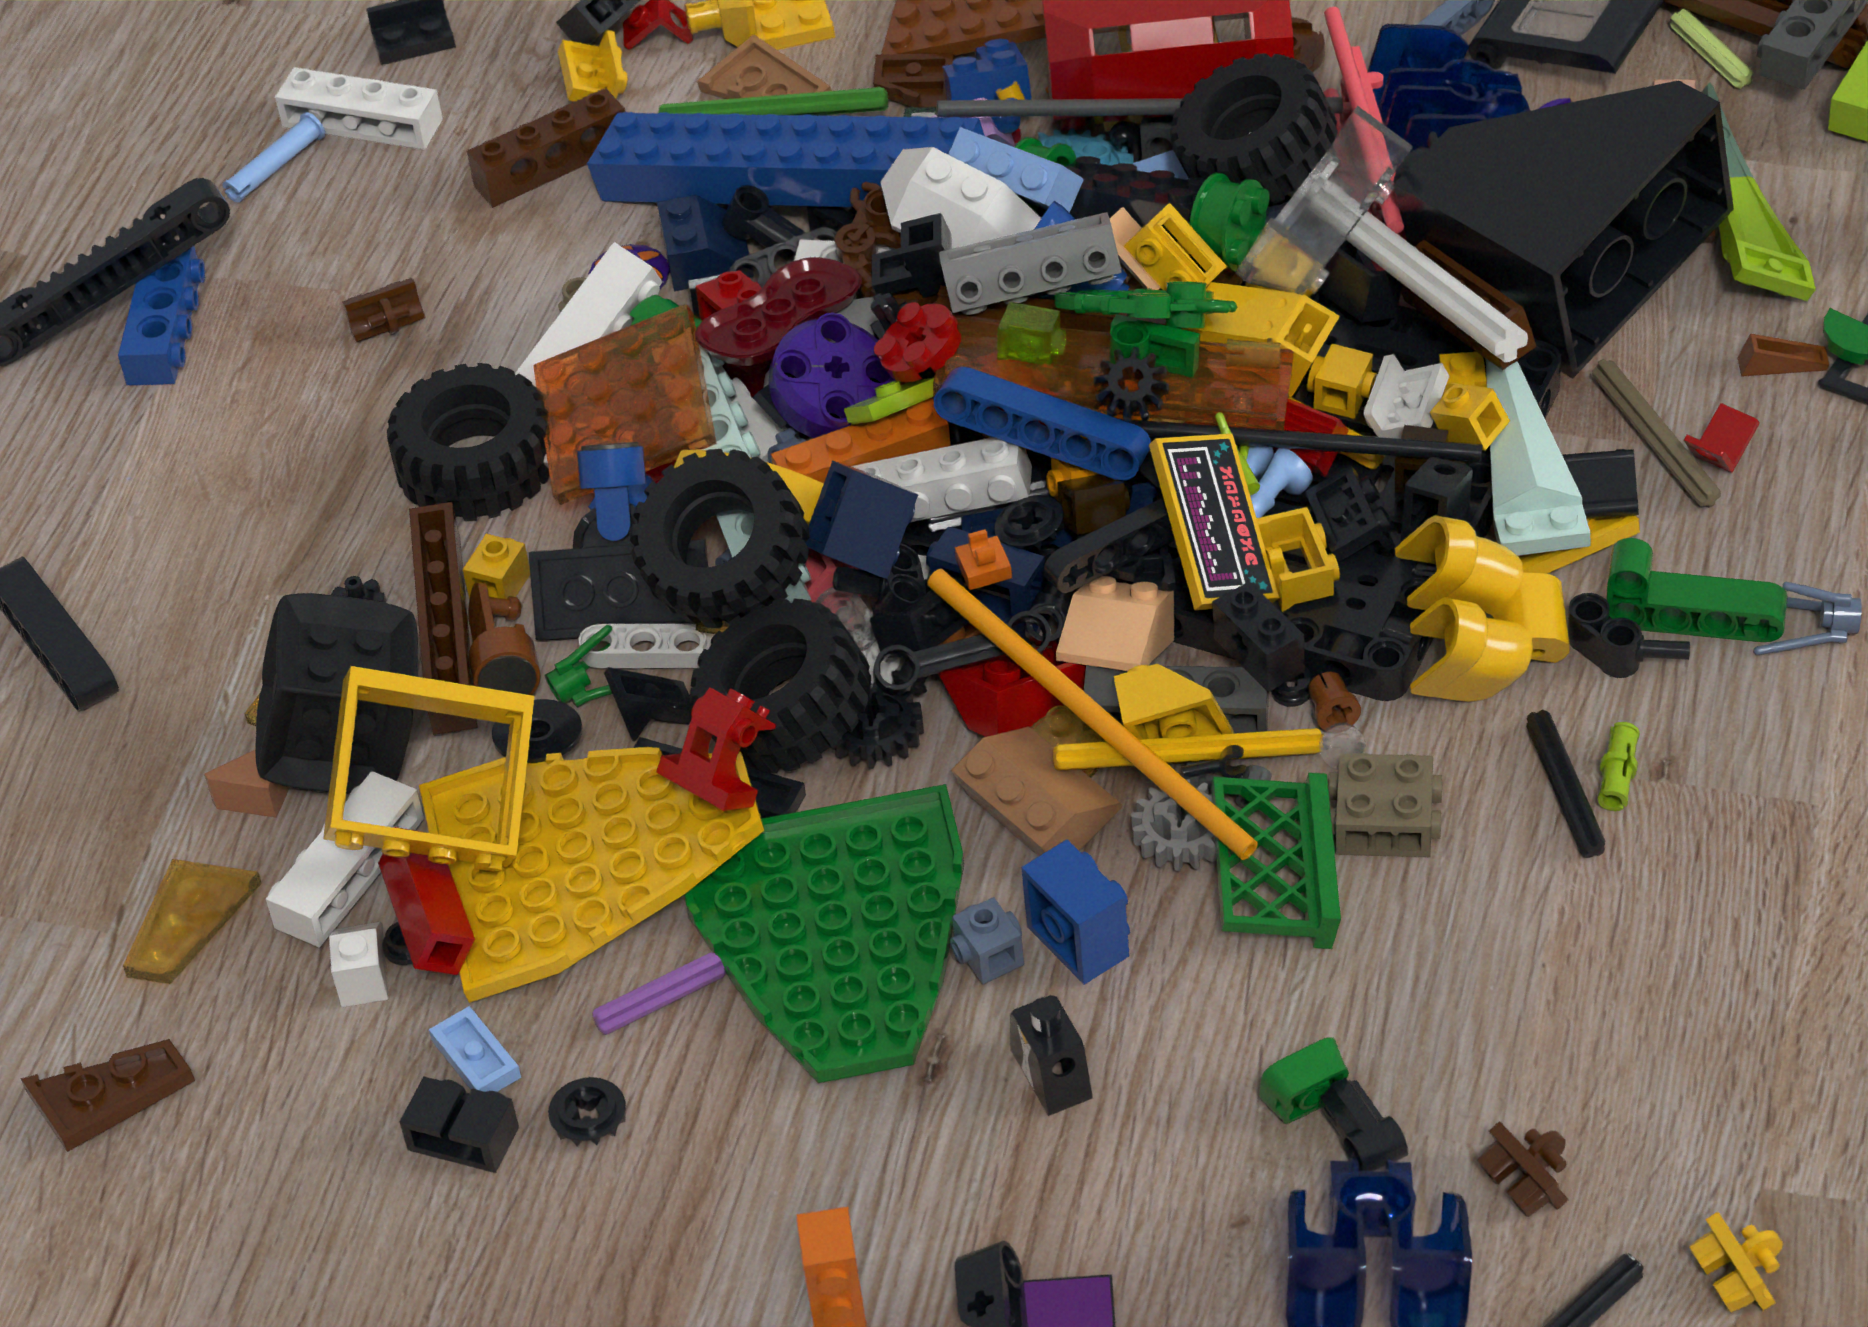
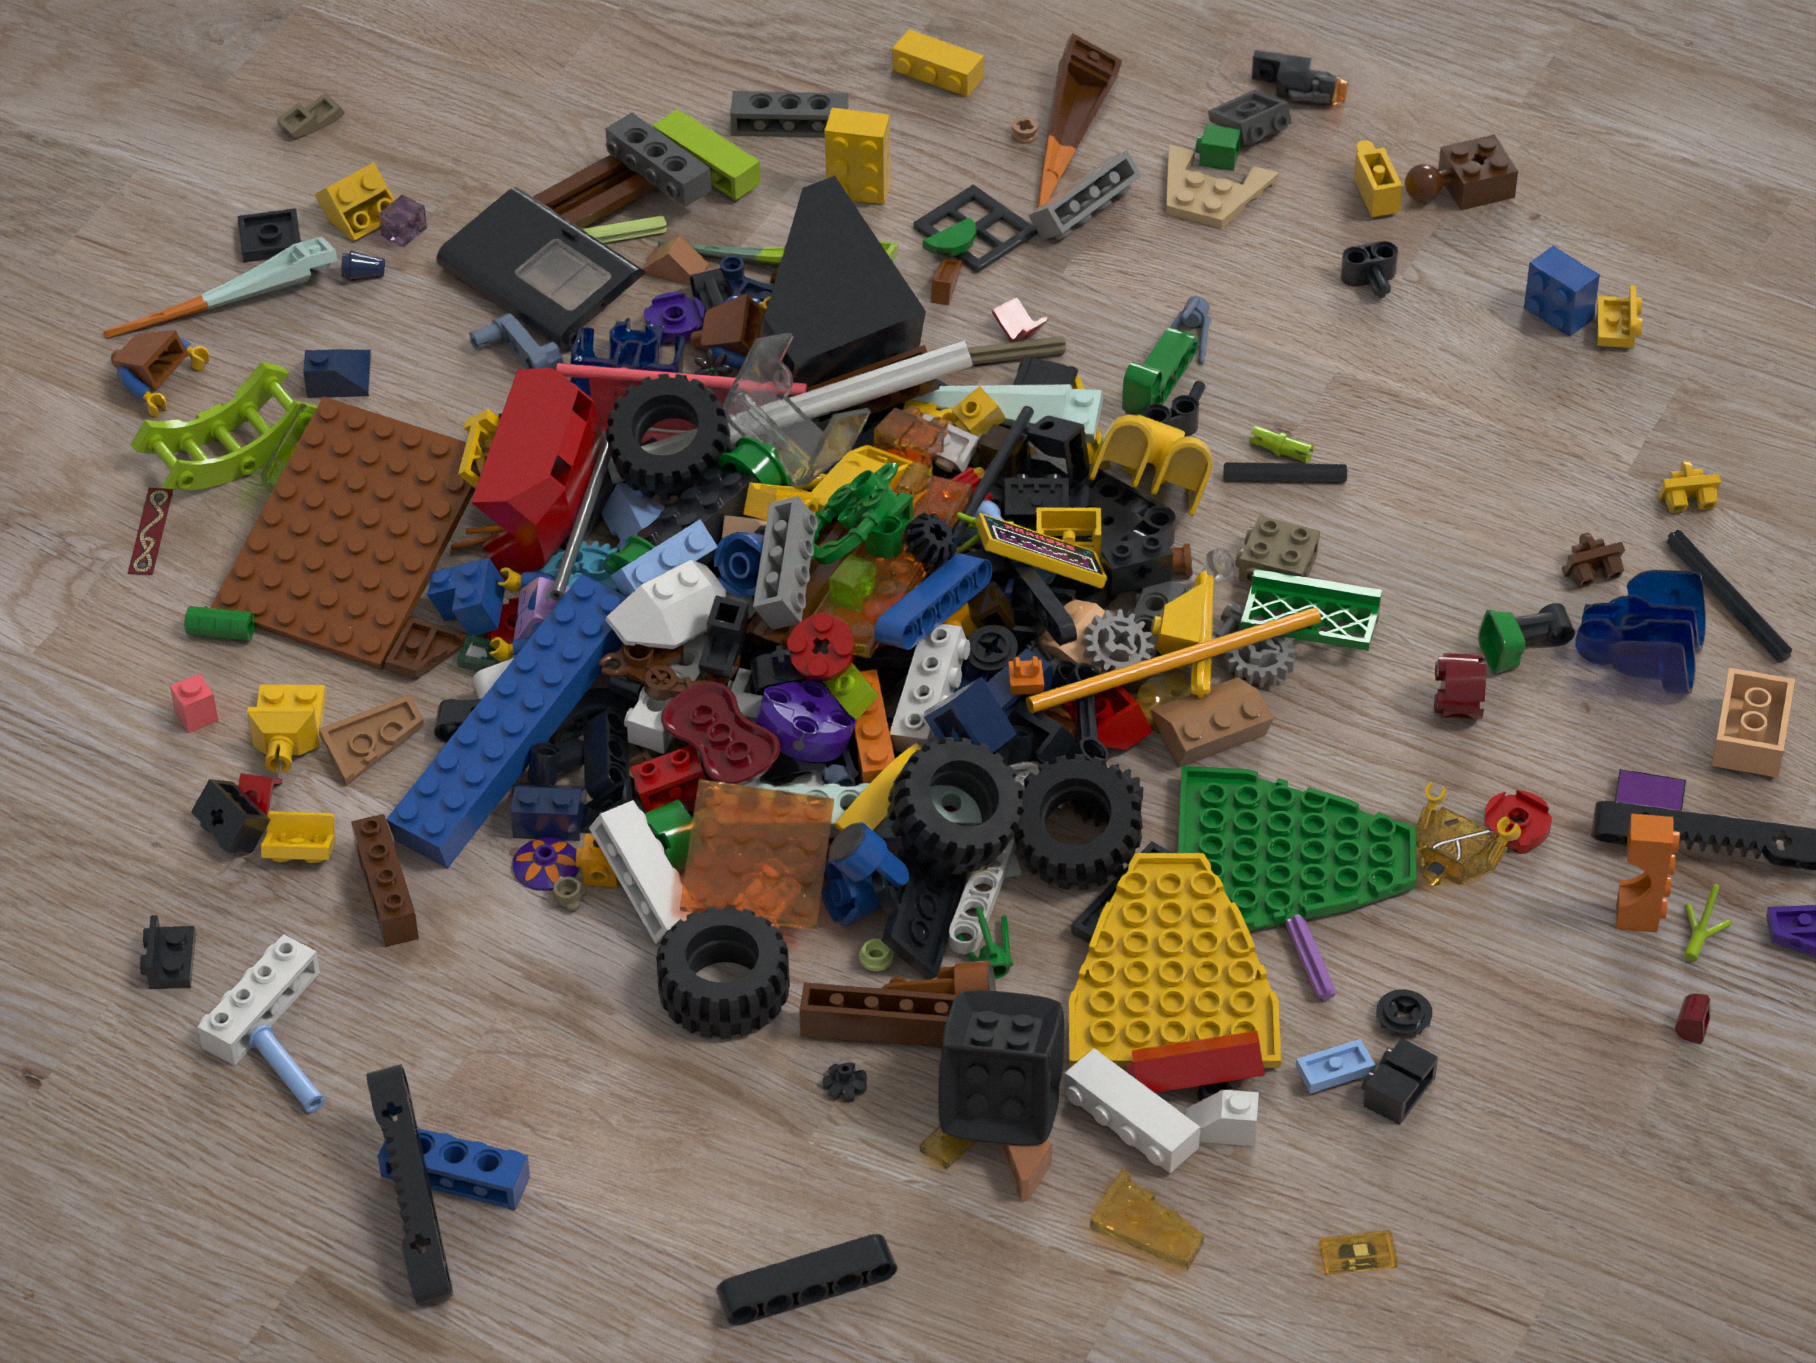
camera: 80 degrees left, 0 degrees up
(103, 1095) = (1301, 1289): reddish brown wing -> none
(182, 1142) = (1358, 1252): none -> clear yellow tile
(383, 309) = (530, 1014): reddish brown hips -> none
(440, 698) = (1138, 980): yellow window -> none
(498, 564) = (860, 973): yellow brick -> none
(553, 730) = (1043, 977): black dish -> none
(648, 697) = (1039, 918): black slope -> none
(735, 727) = (1141, 829): red tile -> none
(790, 104) = (413, 734): bright green axle -> none
(895, 1099) = (1457, 846): none -> clear yellow torso
(975, 1195) = (1526, 805): none -> red plate
(987, 940) = (1333, 768): sand blue brick -> none
(1041, 1038) = (1439, 755): black torso -> none
(1076, 911) = (1332, 714): blue brick -> none
(1094, 647) = (1114, 631): none -> light grey gear
(1184, 1043) = (1461, 685): none -> dark red brick
(1218, 765) = (1222, 616): black hand -> none
(1362, 346) = (910, 435): none -> clear orange hips

